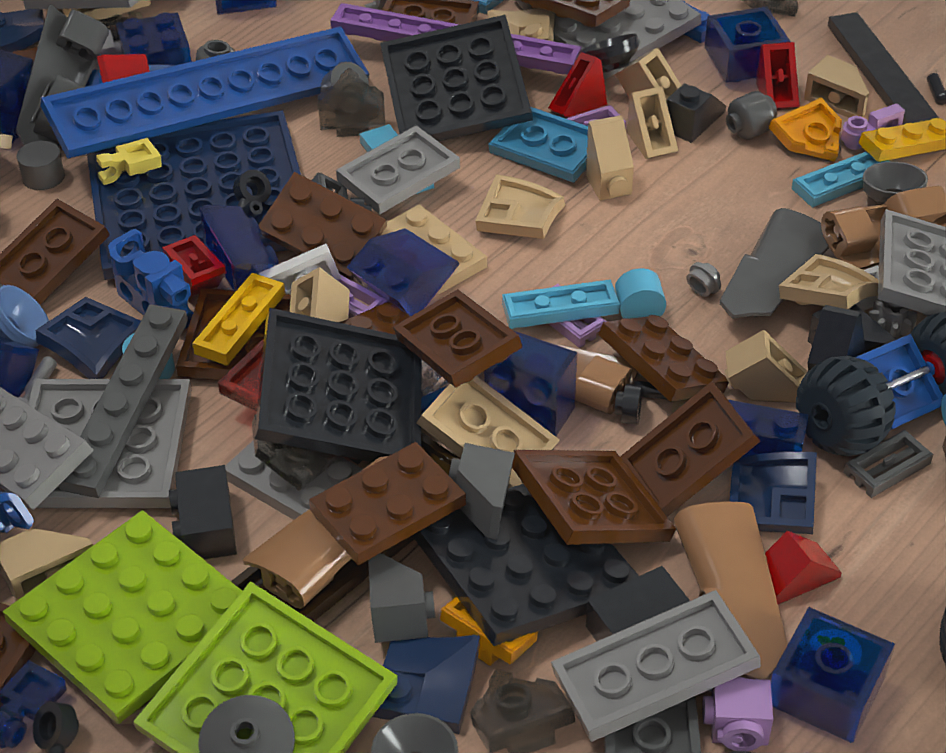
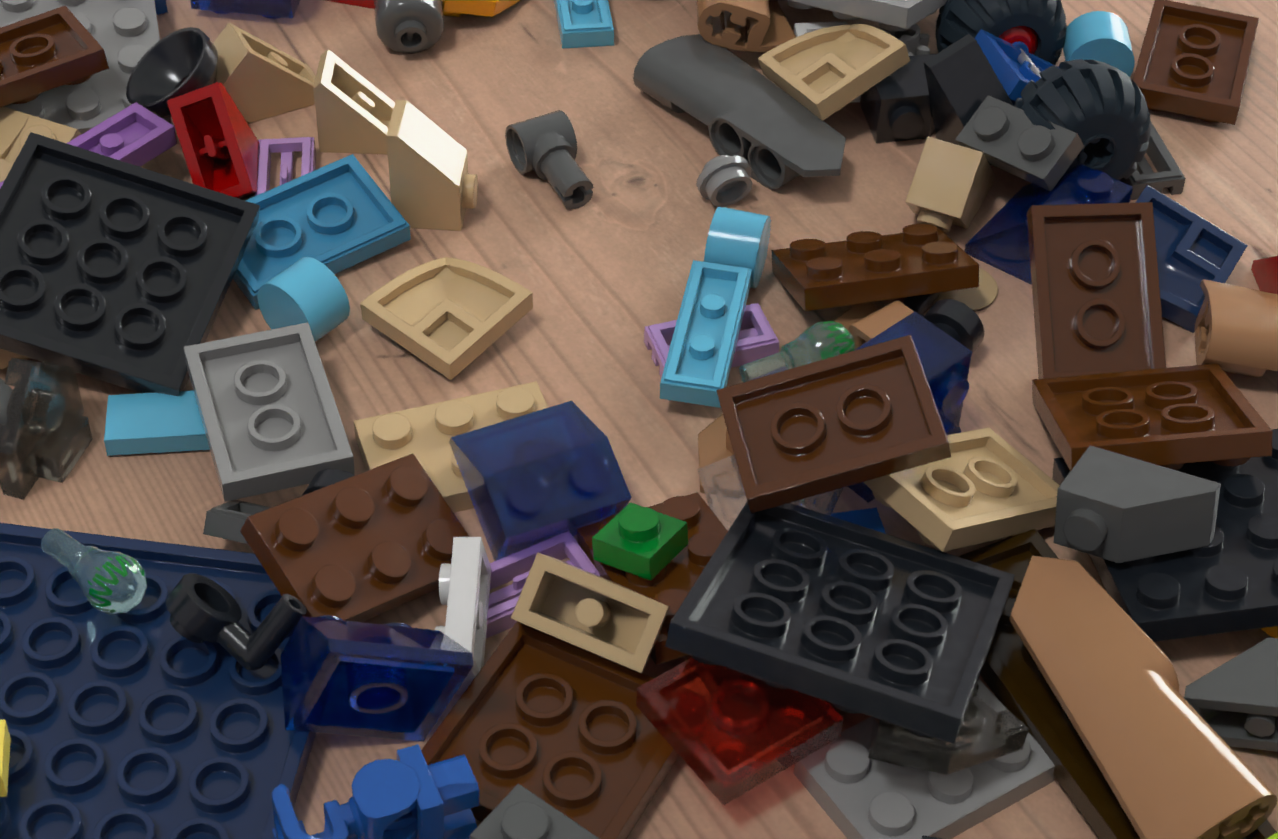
camera: 70 degrees left, 0 degrees up
(199, 264) = (326, 753): red slope -> none
(238, 319) = (557, 723): yellow plate -> none
(260, 155) = (107, 578): none -> clear light blue piece
(370, 312) = (640, 541): none -> green plate
(387, 502) = (1139, 624): reddish brown plate -> none
(485, 157) = (303, 295): none -> medium azure piece
(574, 343) = (816, 343): none -> clear light blue piece
(675, 202) = (550, 149): none -> dark grey pin
(693, 111) = (358, 47): black slope -> none
(791, 383) = (1018, 145): none -> dark grey plate

